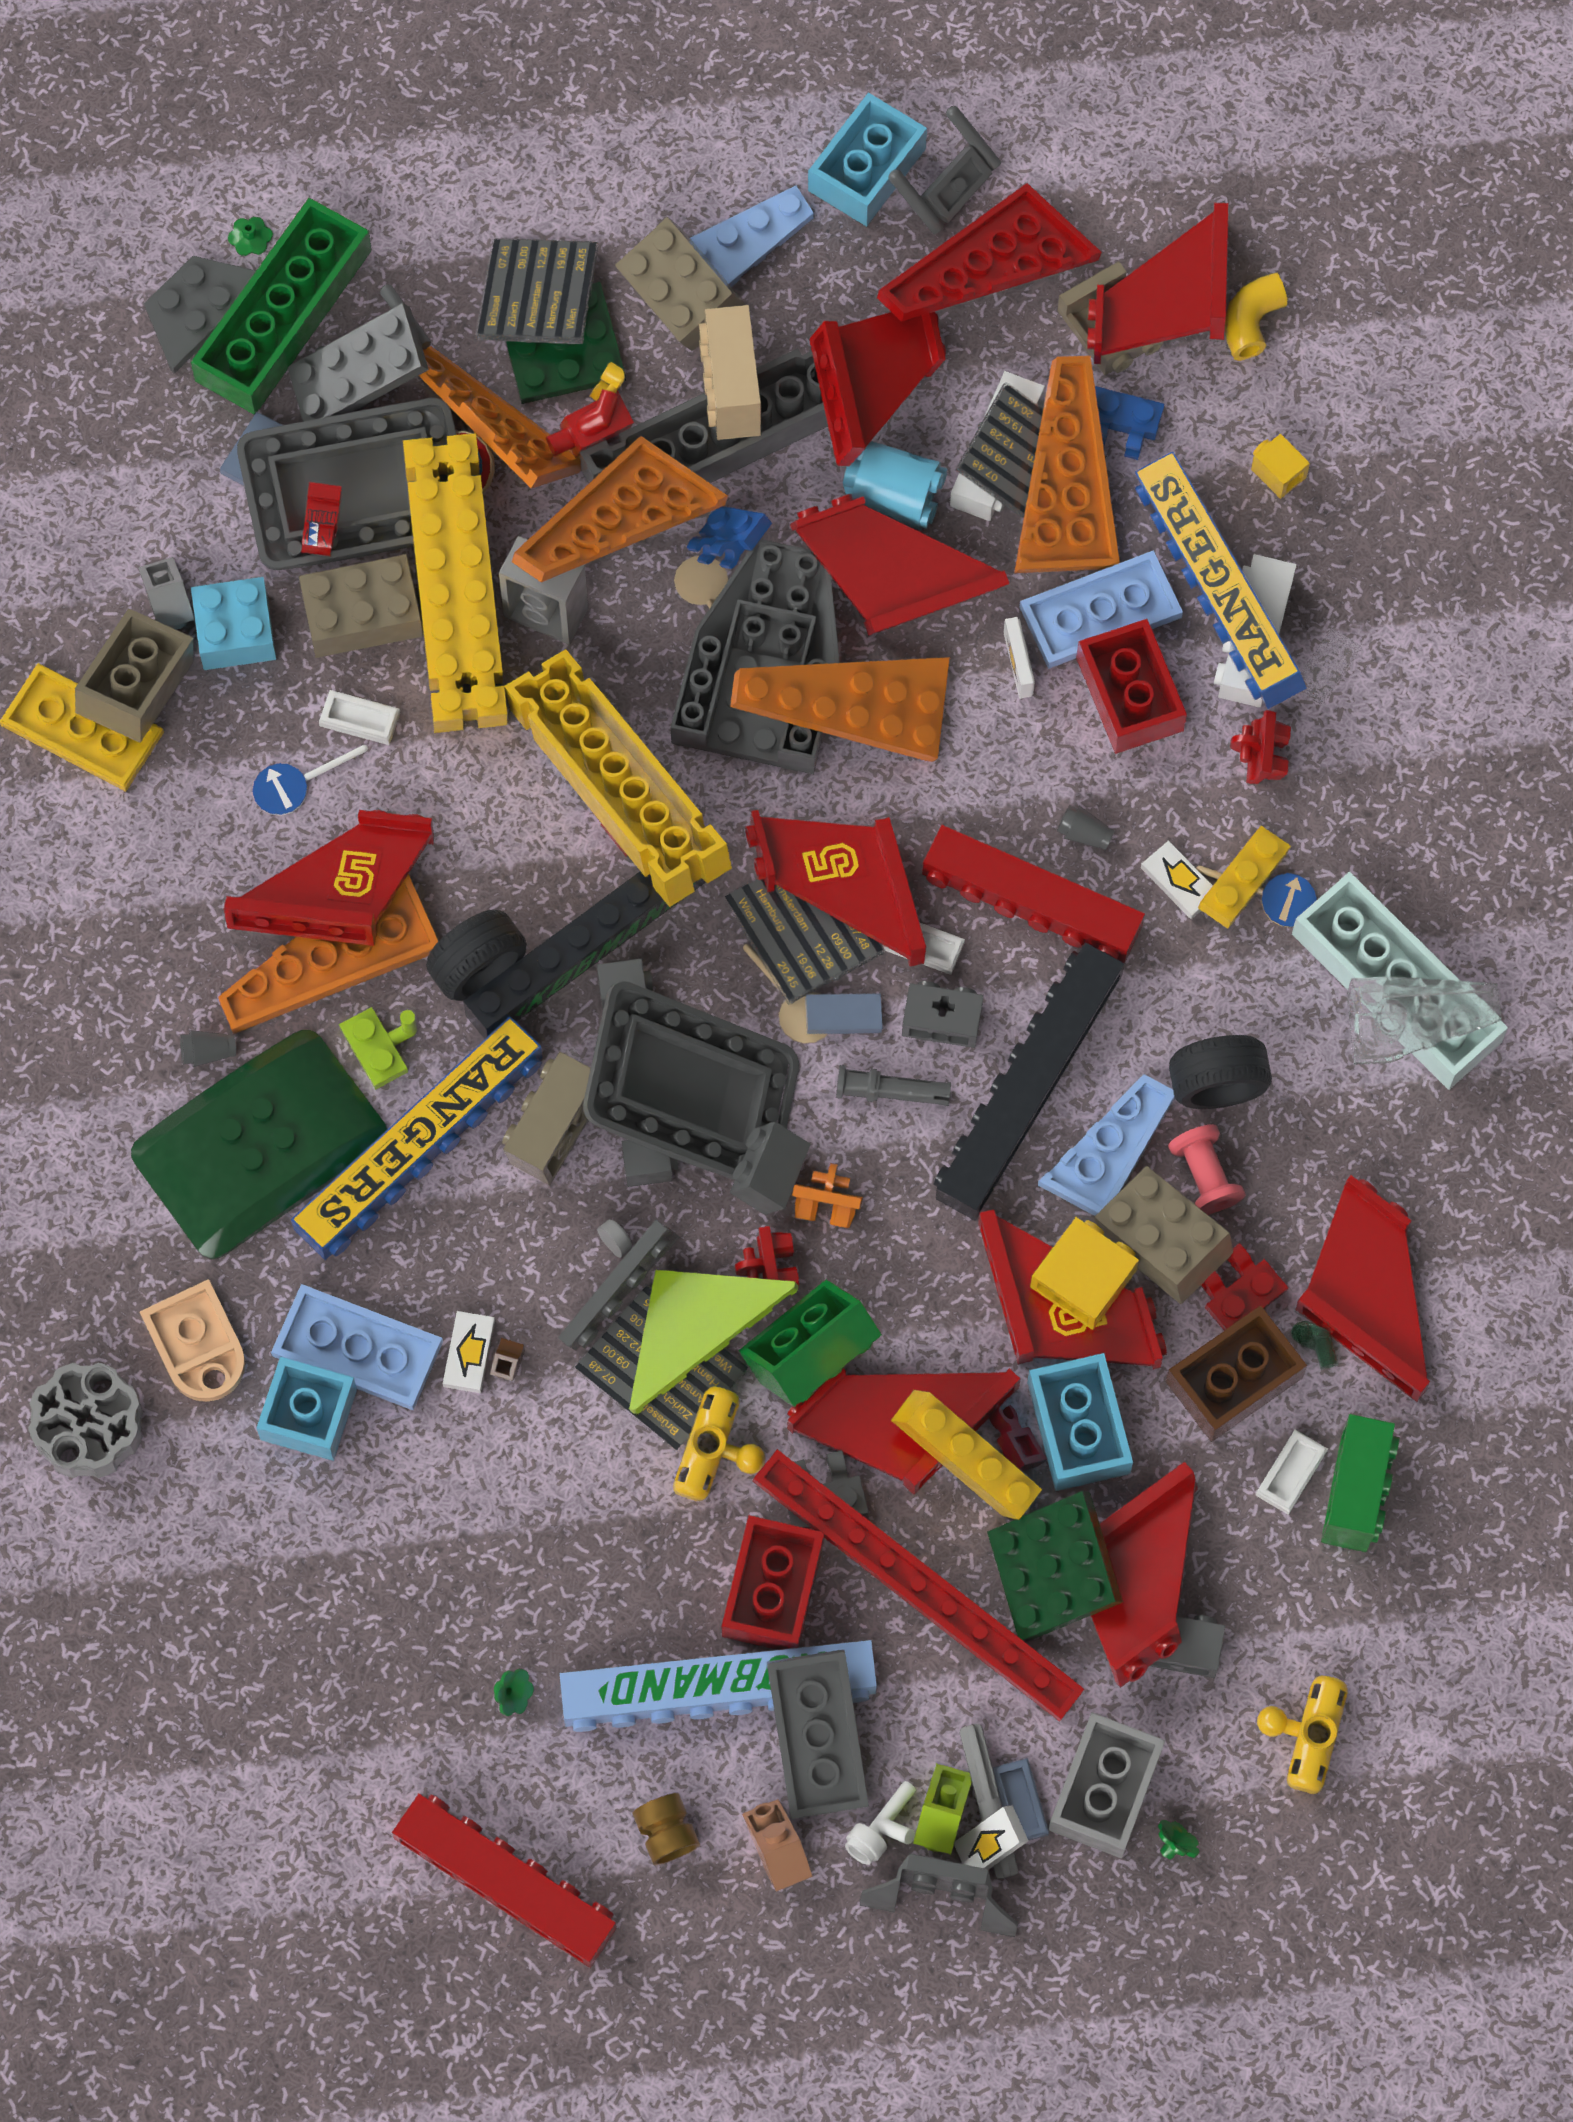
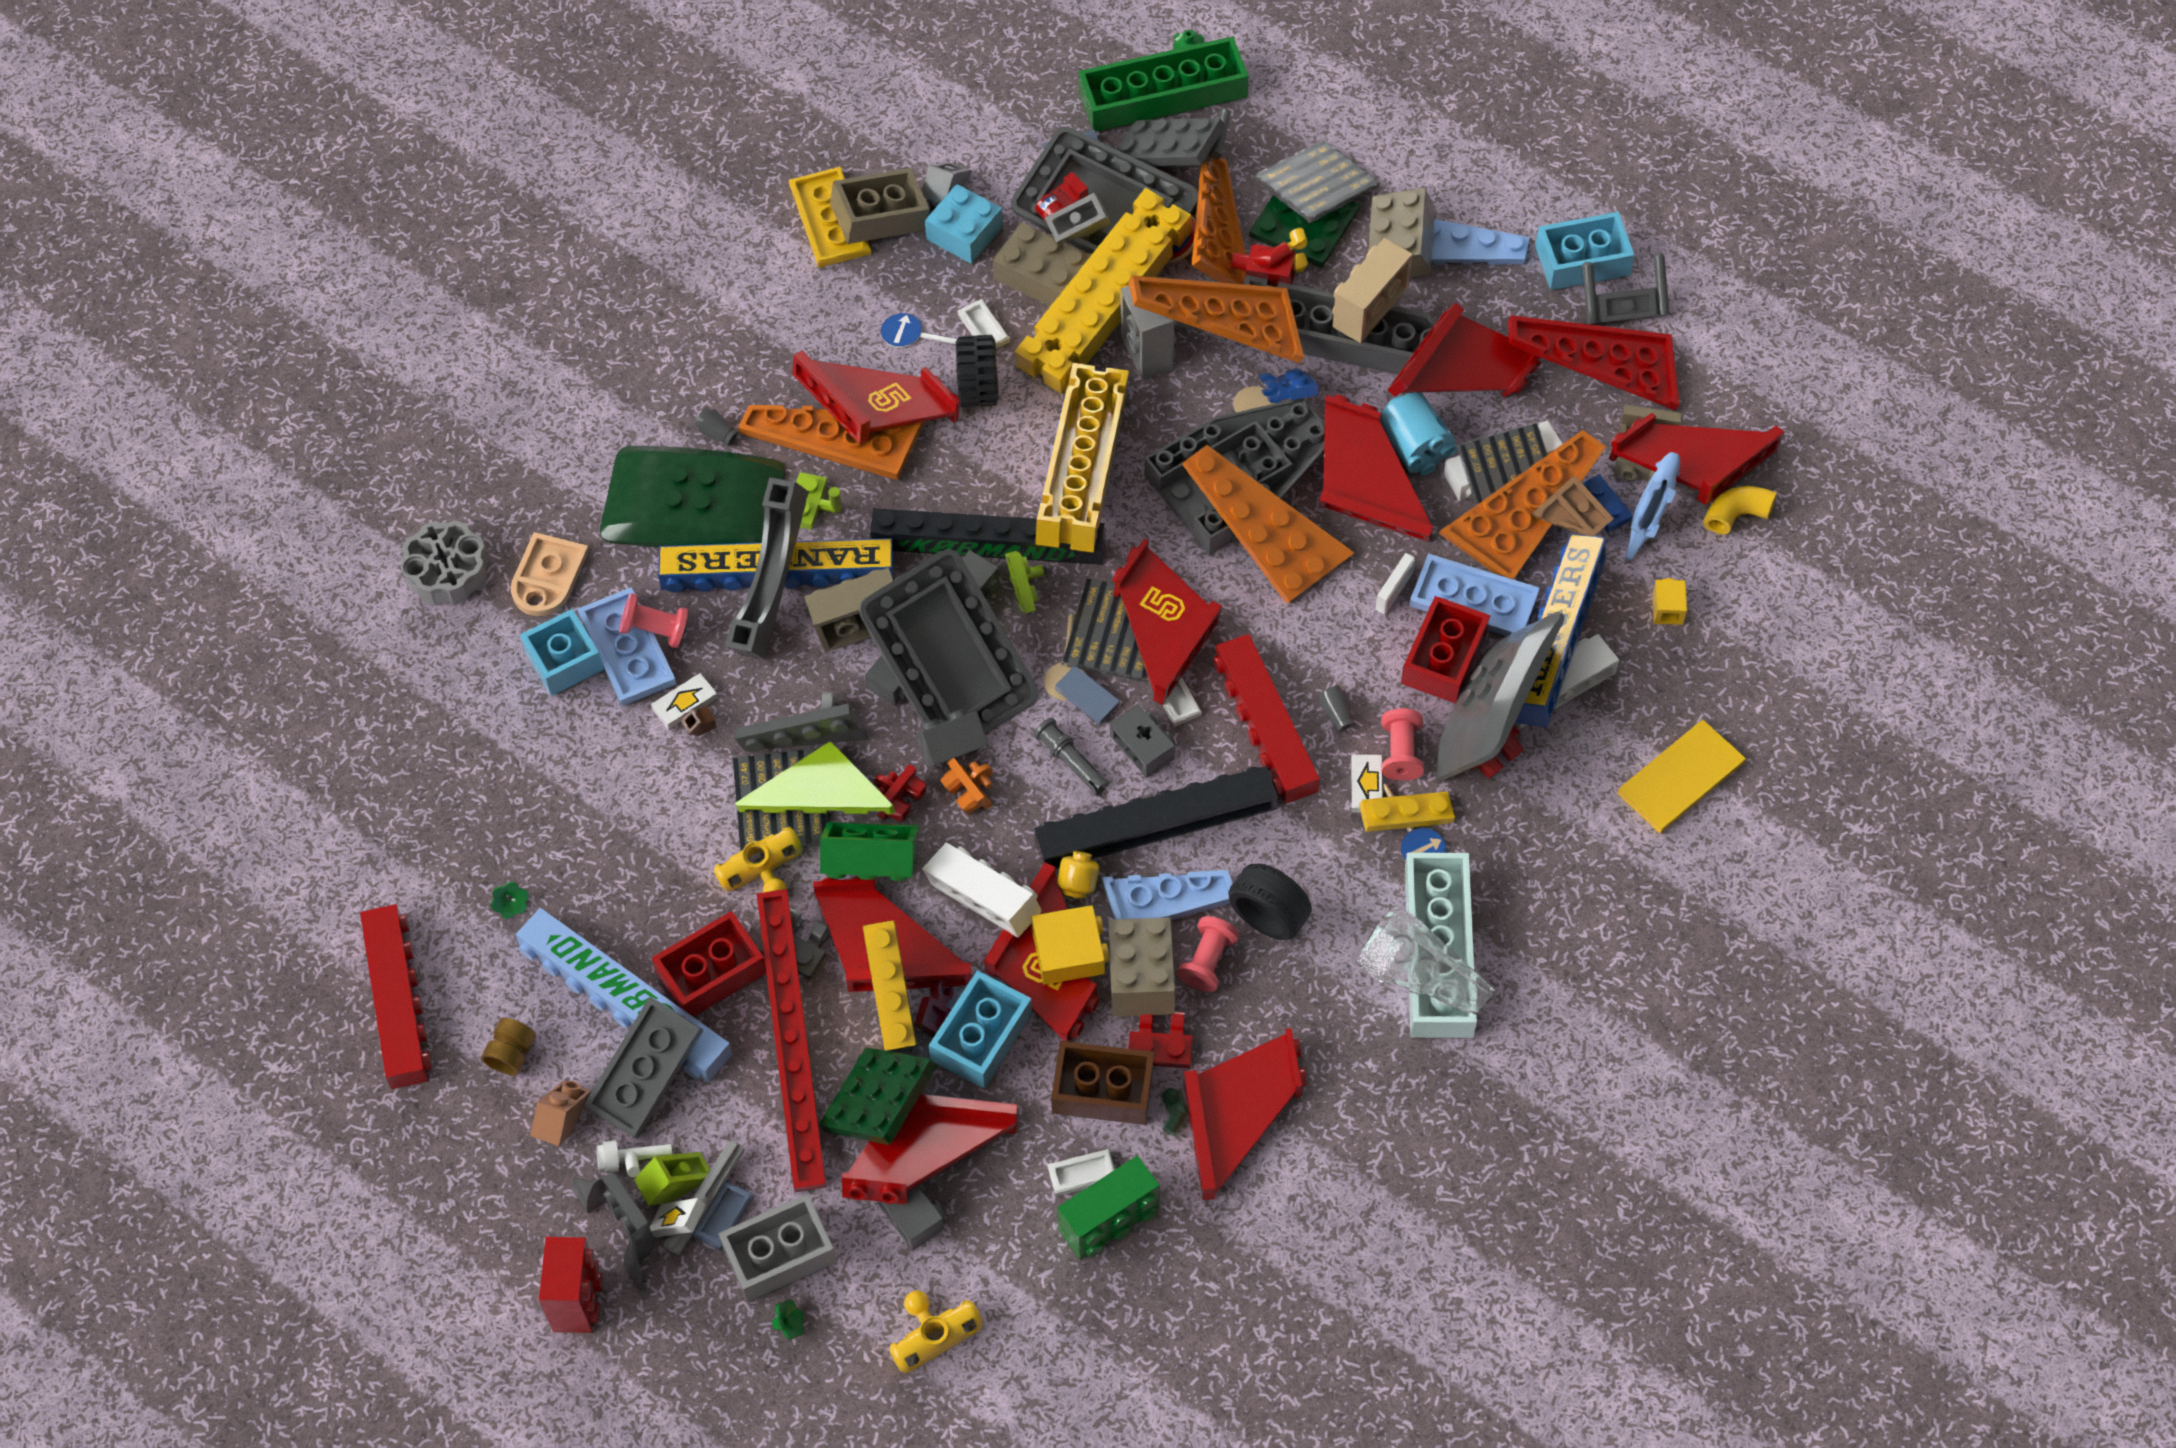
camera: 45 degrees right, 10 degrees down
(192, 306) = (1115, 46): dark grey wing -> none
(344, 1310) = (653, 620): none -> coral piece
(361, 528) = (1078, 219): none -> light grey slope
(417, 772) = (977, 370): none -> black tyre
(434, 1151) = (783, 514): none -> dark grey arch
(475, 953) = (906, 485): black tyre -> none
(668, 947) = (1019, 576): none -> lime plate
(951, 1288) = (982, 888): none -> white brick
(971, 1988) = (570, 1285): none -> red brick
(1017, 1197) = (1078, 875): none -> yellow head
(1119, 445) = (1574, 510): none -> medium nougat wing
(1181, 814) = (1402, 762): none -> coral piece
(1183, 377) = (1653, 503): none -> light blue animal
(1236, 695) = (1494, 697): none -> dark grey wedge
(1445, 632) = (1681, 776): none -> yellow tile

